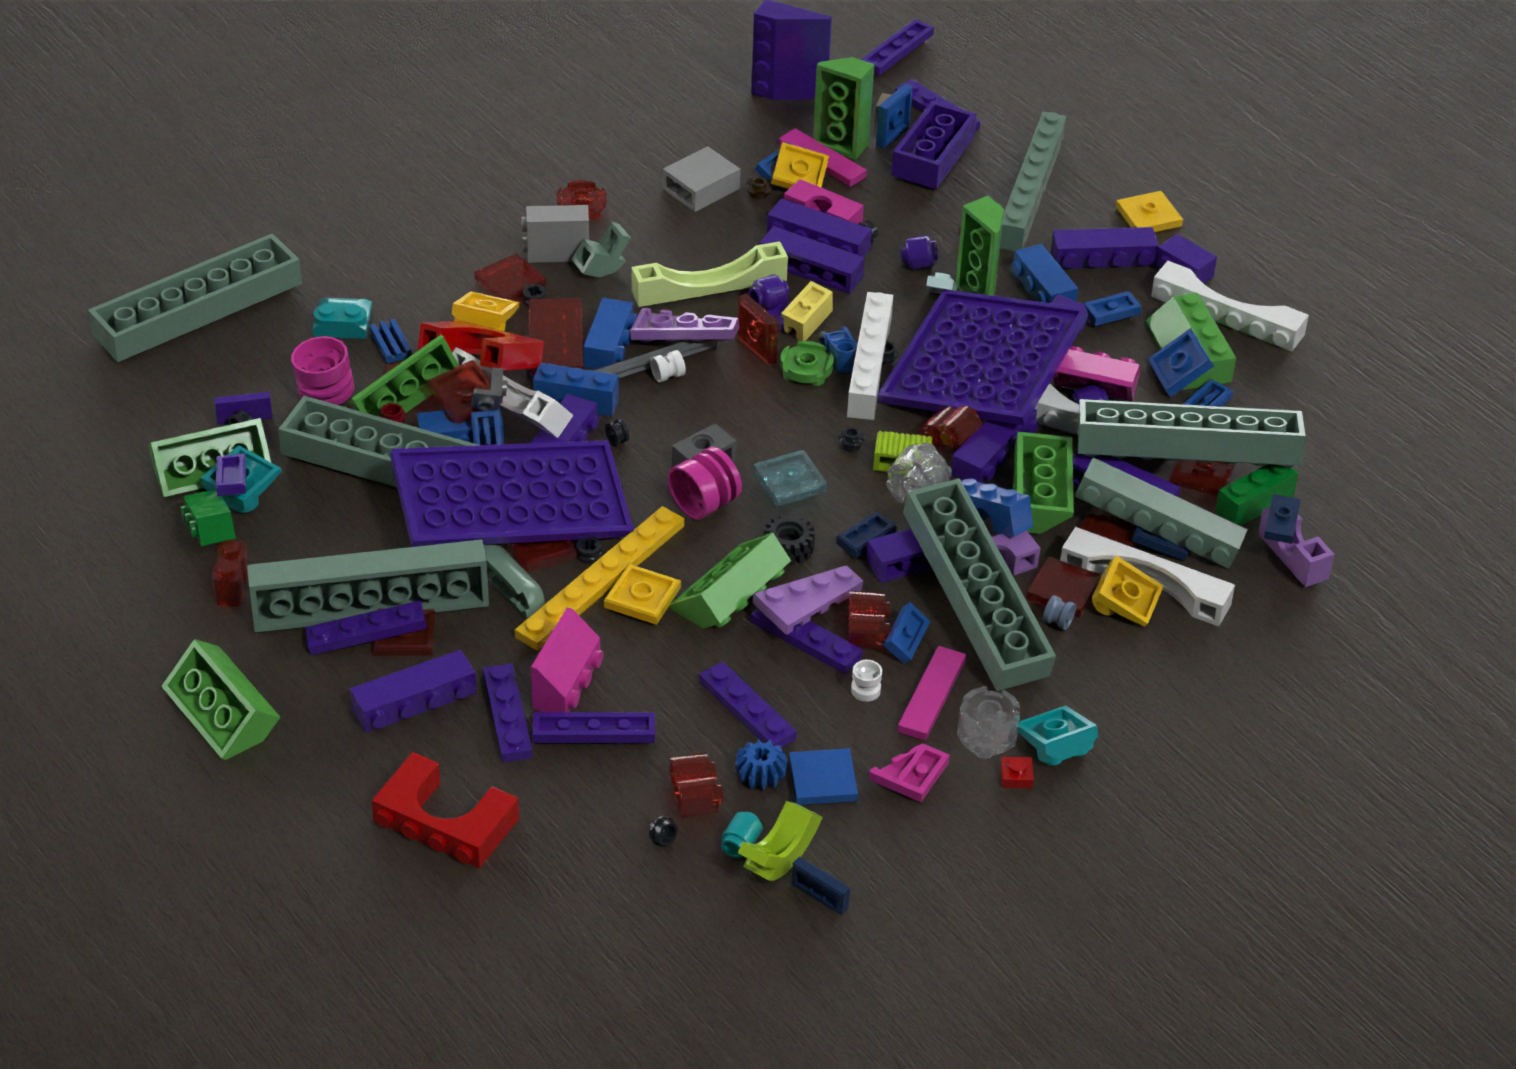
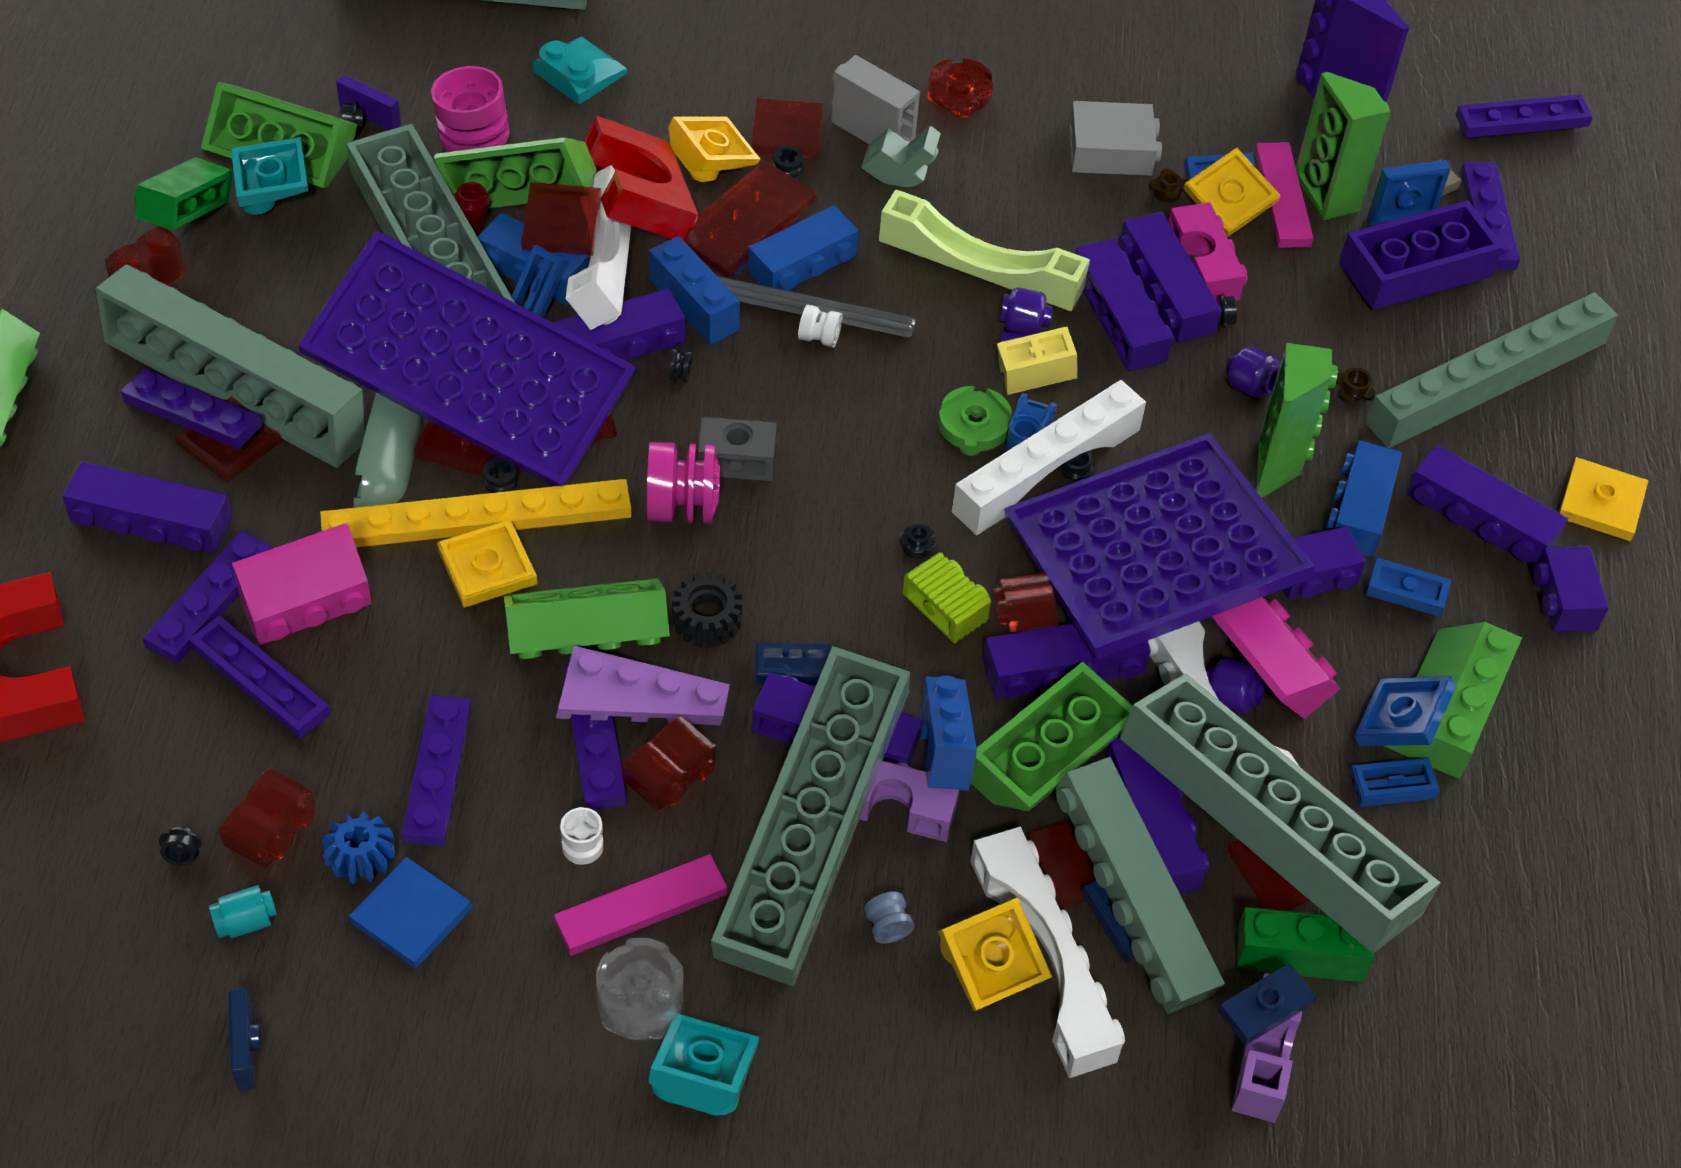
camera: 40 degrees right, 10 degrees up
(231, 475) = (247, 162): dark purple tile -> none
(383, 328) = (612, 109): blue tile -> none
(490, 399) = (579, 234): flat silver bracket -> none
(687, 326) = (880, 289): medium lavender wing -> none
(757, 329) = (951, 344): clear red tile -> none
(783, 844) = (254, 962): lime arch -> none
(790, 478) = (794, 540): clear light blue plate -> none
(906, 633) = (692, 812): blue plate -> none
(912, 772) = (502, 983): dark pink wing -> none
(916, 468) = (919, 634): clear brick -> none
(940, 282) = (1225, 427): light aqua plate -> none
(1017, 772) = (614, 1075): red plate -> none
(1065, 581) = (940, 887): clear red tile -> none
(1269, 323) = (1595, 746): white arch -> none

